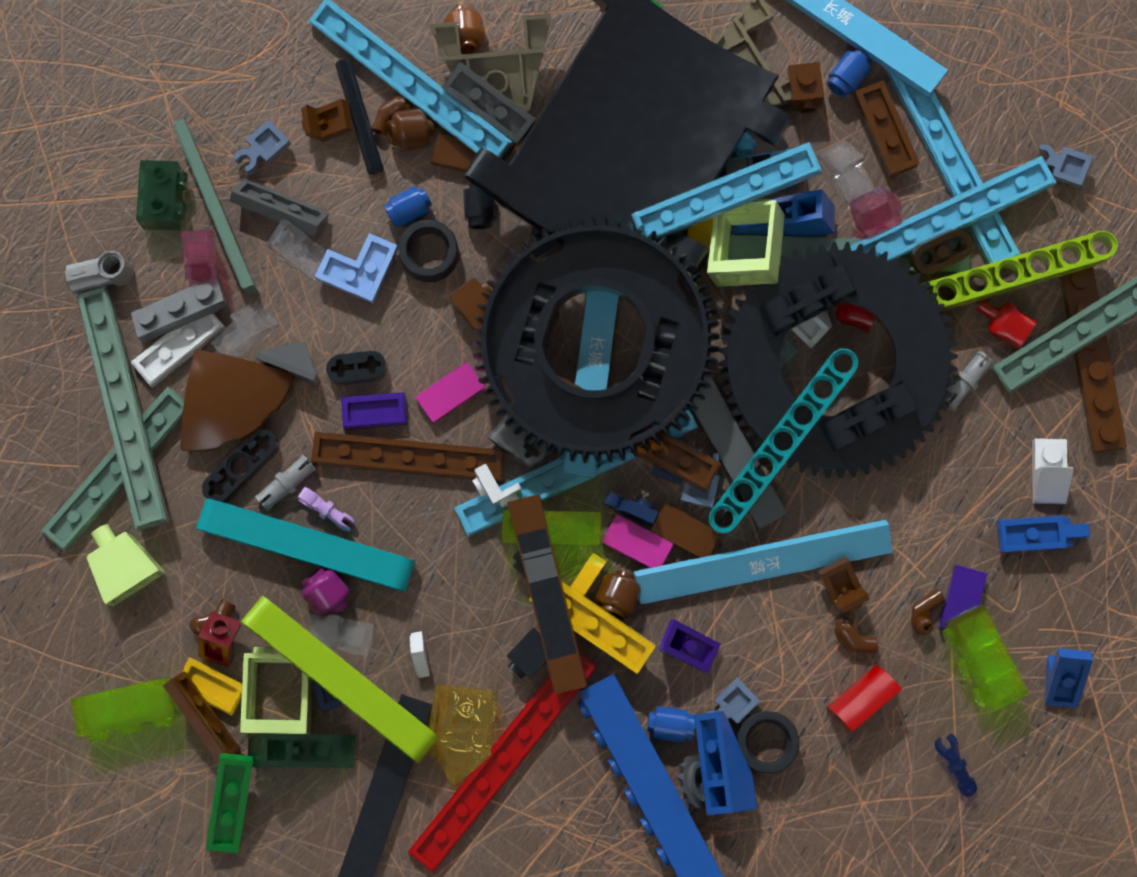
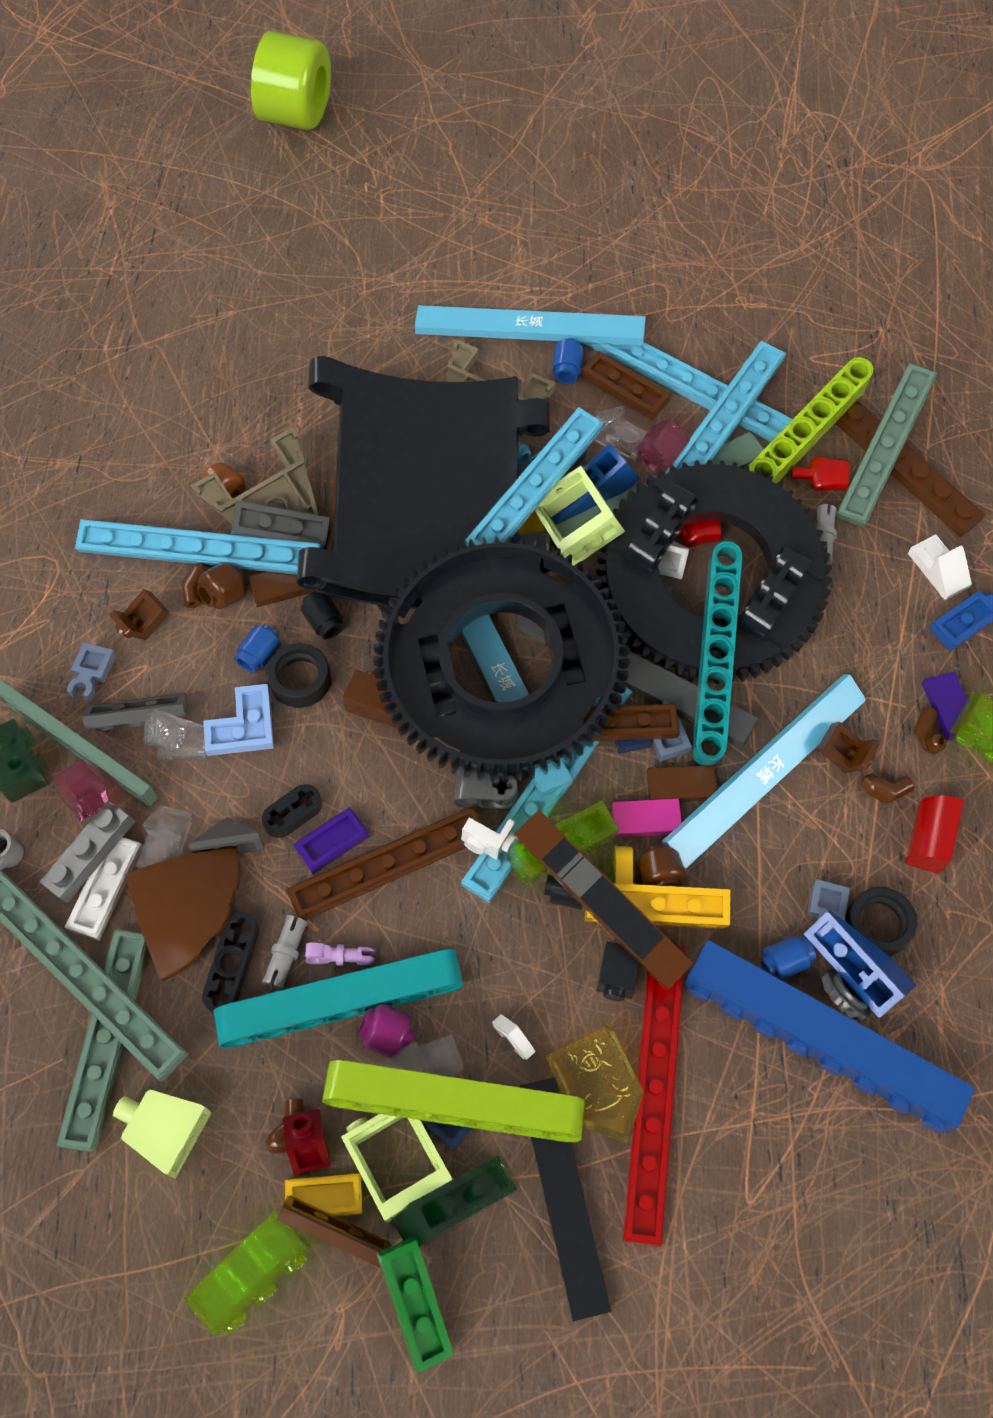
camera: 35 degrees left, 15 degrees down
(359, 116) = (176, 607): black axle -> none
(450, 392) = (393, 784): dark pink tile -> none
(638, 510) = (627, 788): dark blue plate -> none
(689, 646) = (754, 877): dark purple slope -> none
(805, 87) = (541, 383): reddish brown bracket -> none
(939, 251) = (734, 447): dark brown plate -> none
(1069, 166) = (786, 338): sand blue plate -> none

